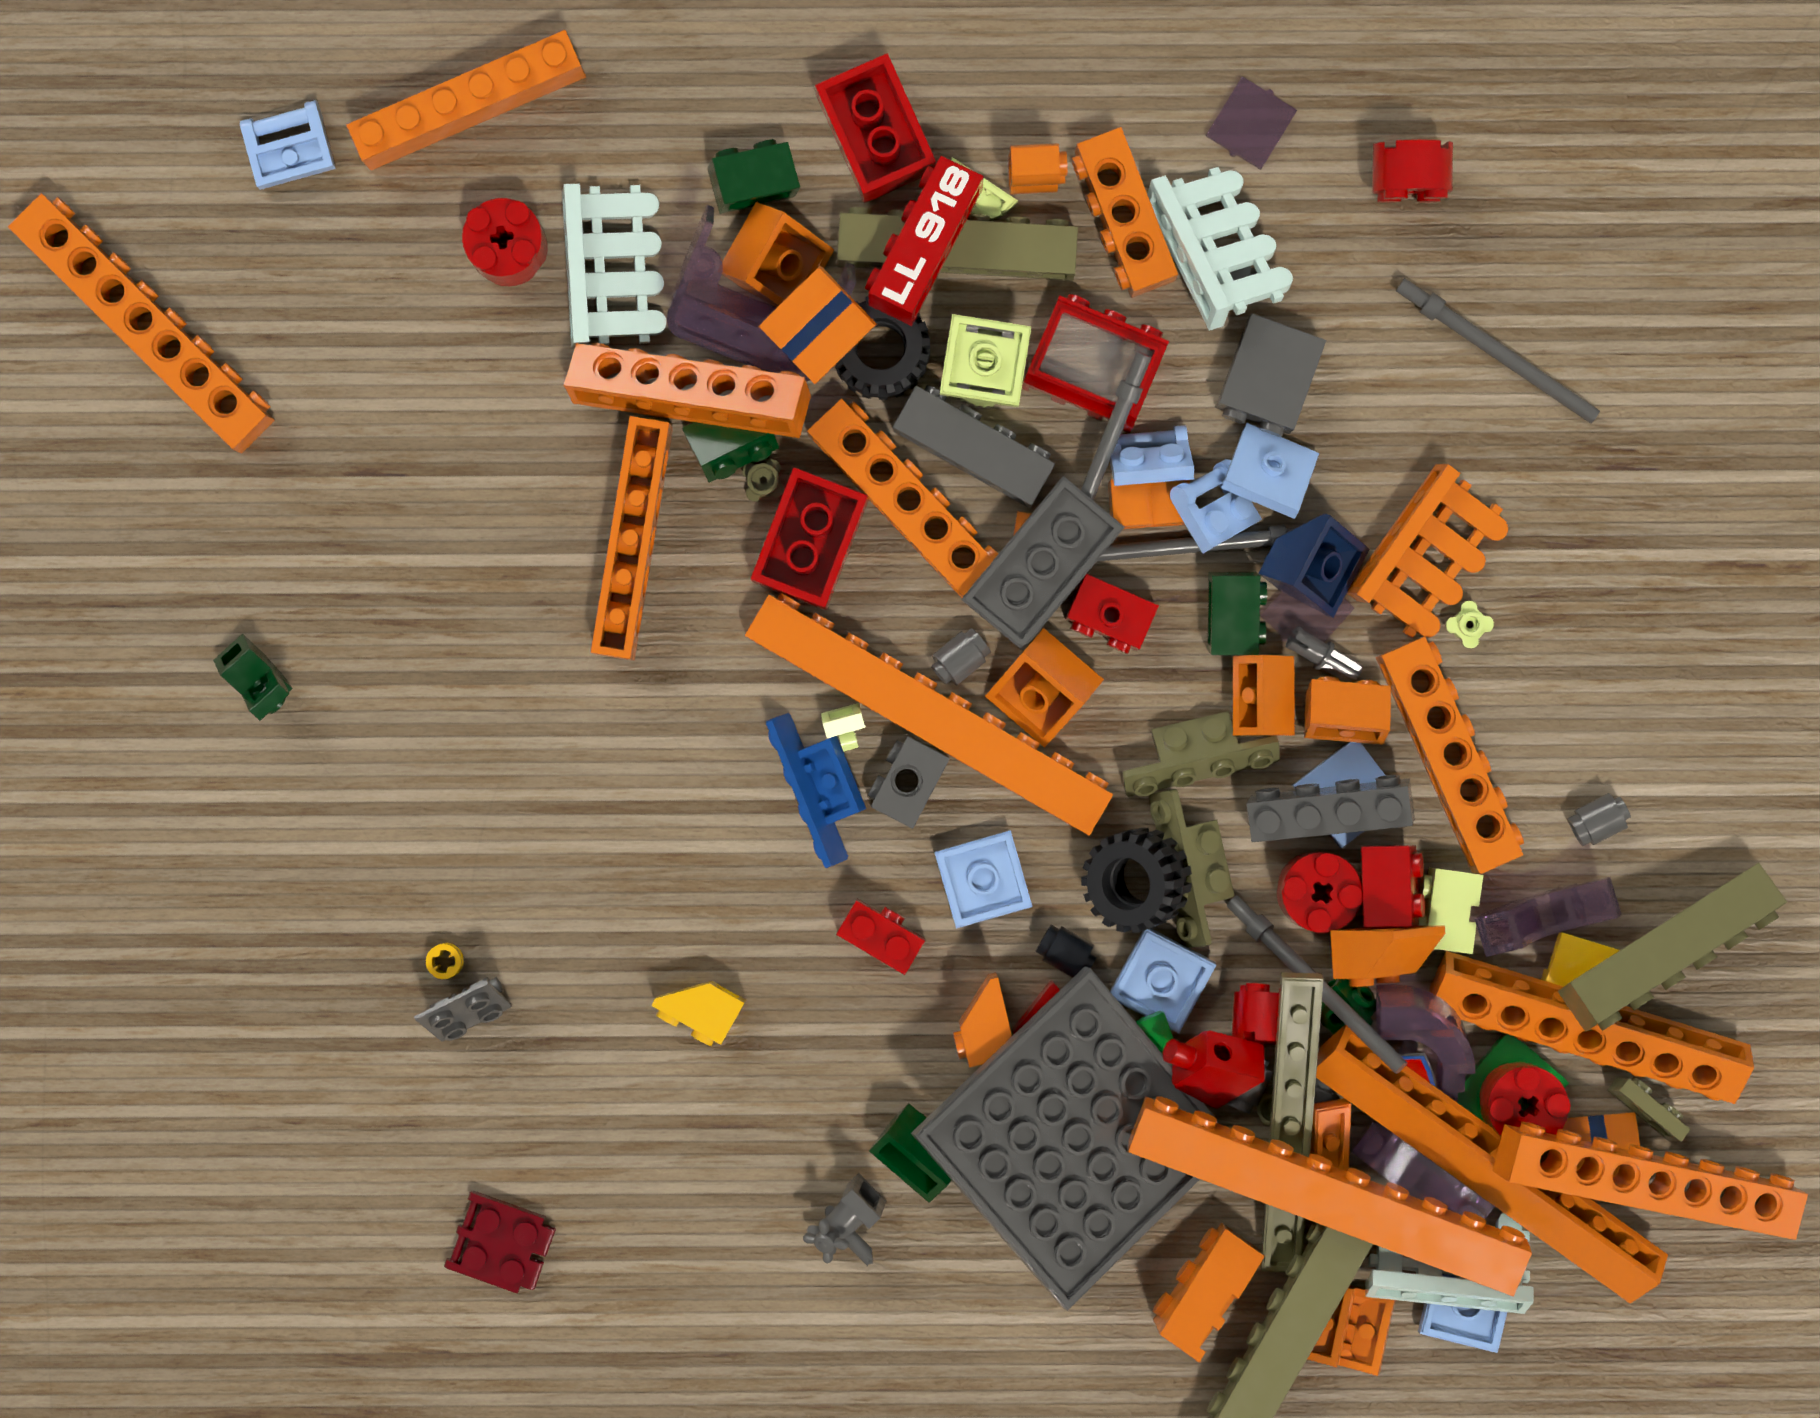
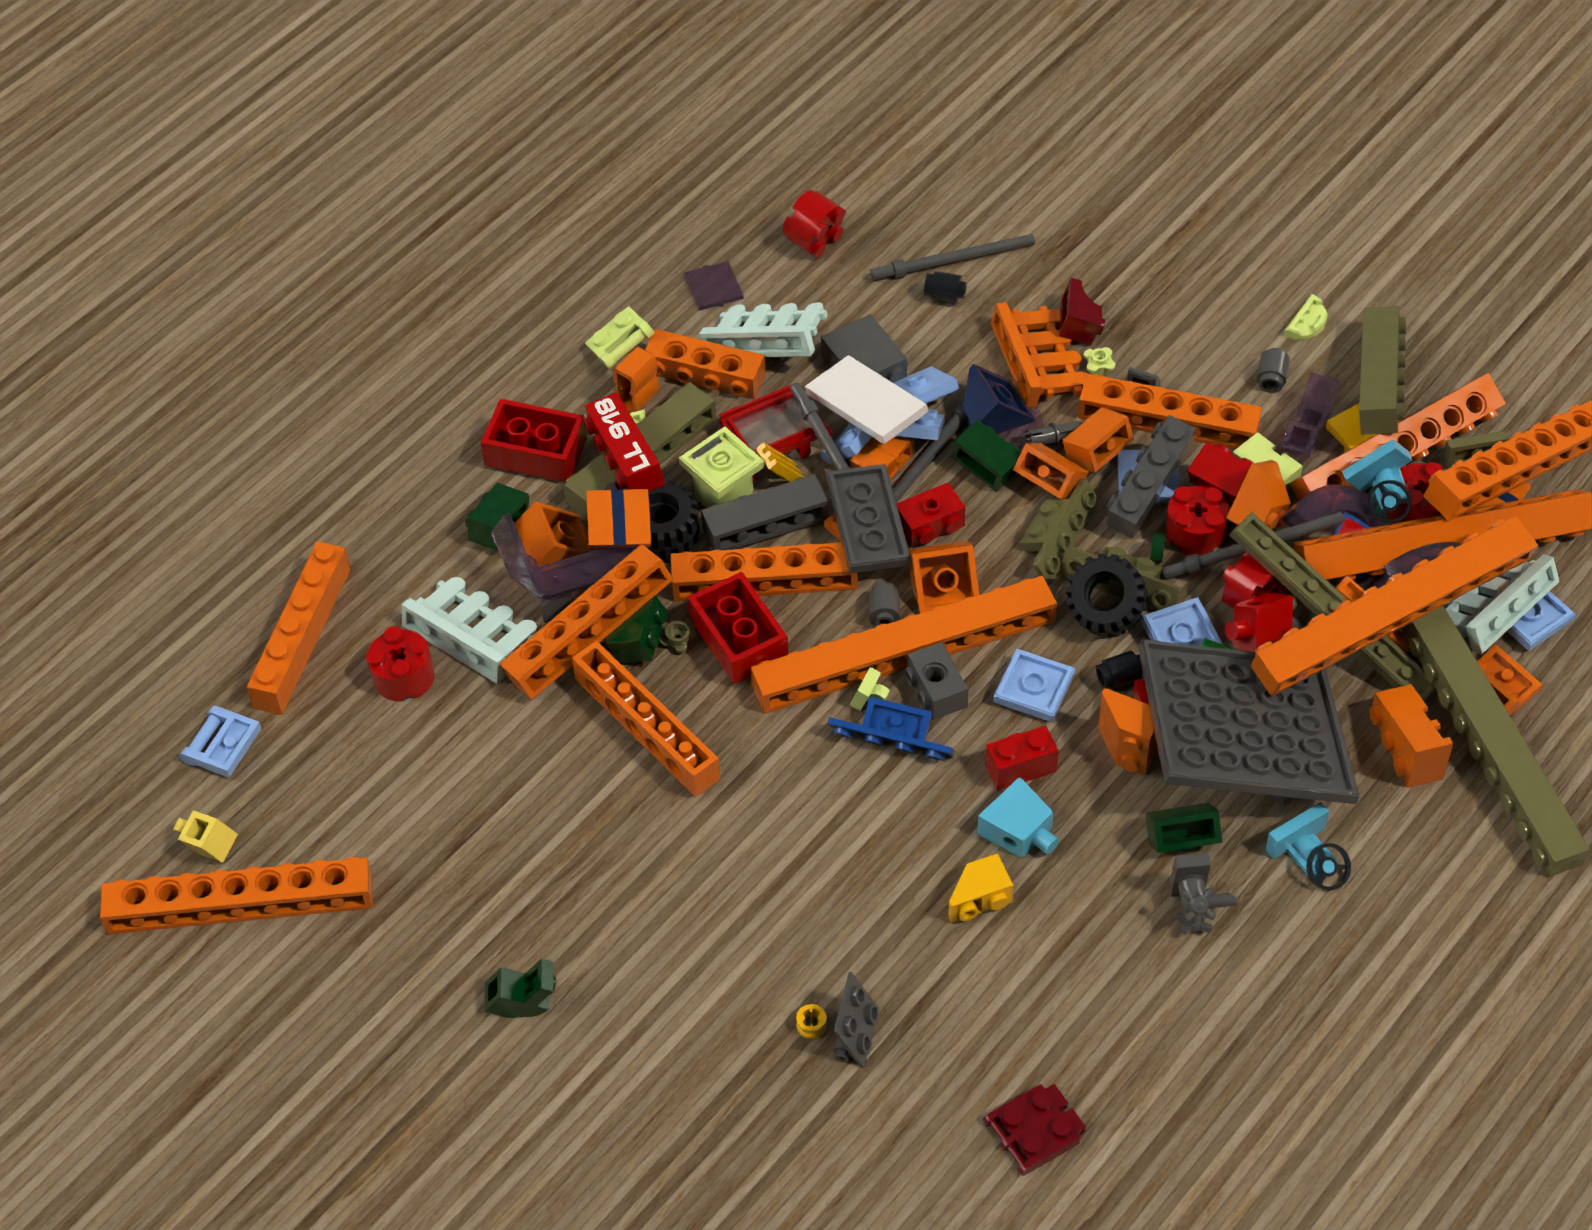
camera: 50 degrees left, 35 degrees down
(169, 237) = (206, 835): none -> light yellow brick
(807, 988) = (1018, 821): none -> medium azure torso
(994, 1287) = (1299, 841): none -> medium azure piece
(1059, 422) = (779, 463): none -> yellow tile
(1084, 86) = (619, 337): none -> yellowish green plate
(1189, 442) = (866, 399): none -> white tile
(1252, 875) = (1157, 548): none -> dark green tile
(1440, 381) = (944, 287): none -> black brick
(1475, 693) = (1142, 377): none -> dark grey slope
(1497, 1074) = (1383, 472): none -> medium azure piece
(1509, 560) = (1079, 315): none -> dark red arch
(1711, 803) = (1308, 321): none -> yellowish green tile

